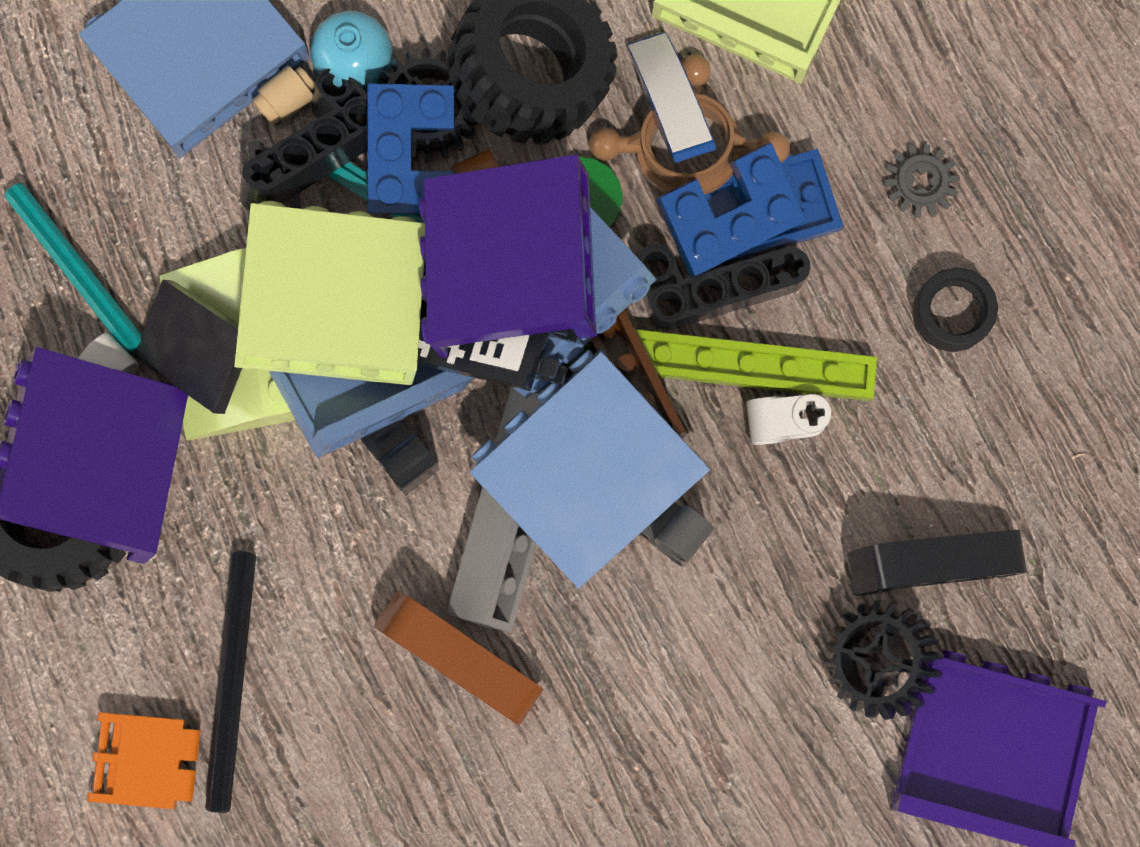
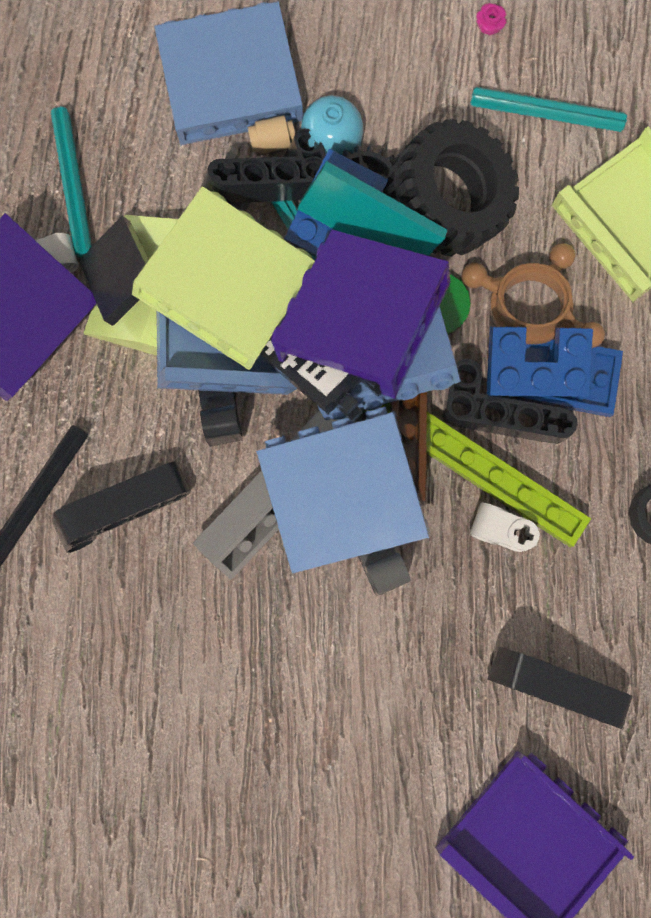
camera: 30 degrees right, 0 degrees up
(338, 615) = (119, 504): none -> black beam
(456, 140) = (366, 212): none -> teal tile
(458, 657) = (184, 578): dark orange beam -> none
(671, 97) = (537, 263): white slope -> none
(877, 674) = (475, 746): black gear -> none

